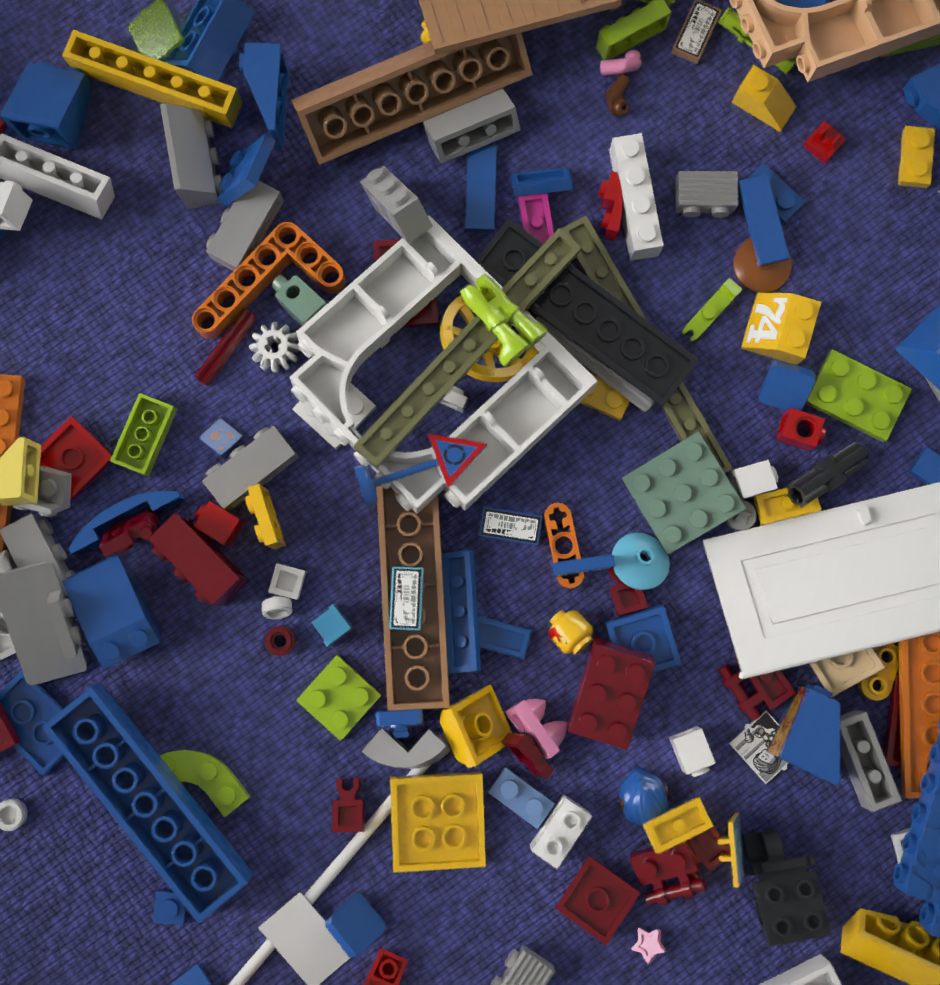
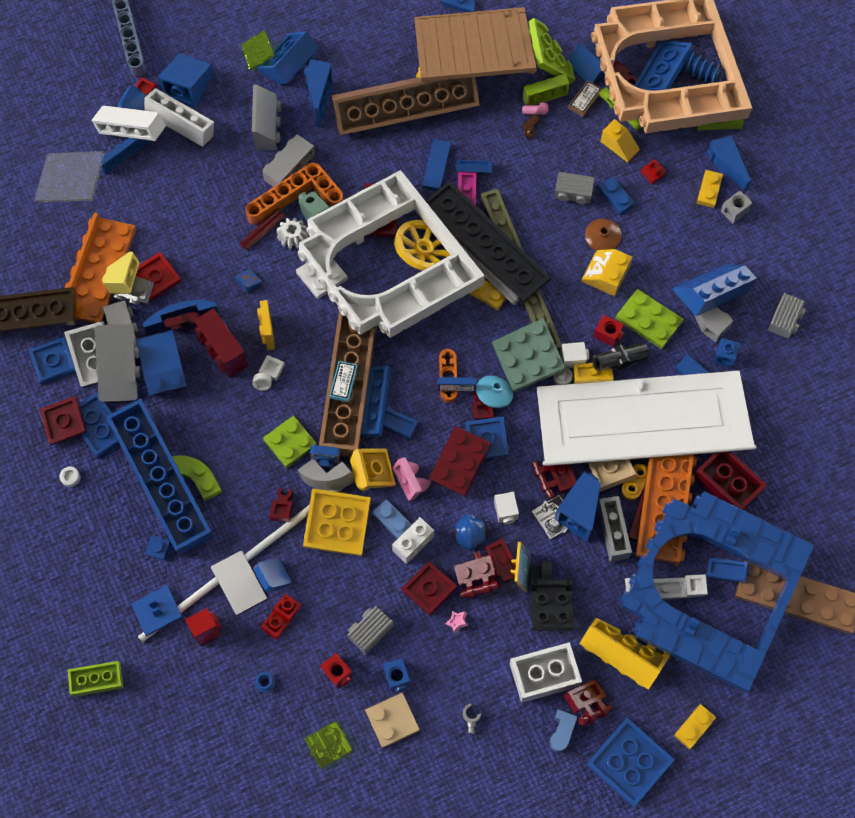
camera: 10 degrees right, 15 degrees down
(143, 434) = (201, 270): lime piece -> none
(152, 78) = (251, 73): yellow brick -> none
(218, 523) = (237, 326): red brick -> none
(245, 170) = (295, 130): blue plate -> none
(249, 466) = (275, 291): light grey brick -> none
(270, 640) = (260, 397): dark red plate -> none
(332, 625) = (295, 398): dark azure panel -> none
(396, 204) = (382, 161): light grey brick -> none
(451, 455) = (386, 300): blue piece -> none
(455, 400) = (393, 277): white plate -> none
(462, 353) = (408, 243): olive plate -> none
(472, 125) = (437, 128): light grey brick -> none
(498, 313) = (430, 223): lime piece -> none
(510, 526) = (417, 359): tile -> none
(524, 750) = (401, 490): dark red plate -> none
(570, 632) = (442, 424): yellow head -> none
(612, 200) = (514, 186): red slope -> none
(638, 201) = (530, 183): white brick -> none
(677, 825) = (487, 545): yellow plate -> none
(712, 309) = (566, 255): lime piece -> none
(763, 220) = (605, 207): blue tile -> none
(786, 386) = (603, 303): blue piece -> none

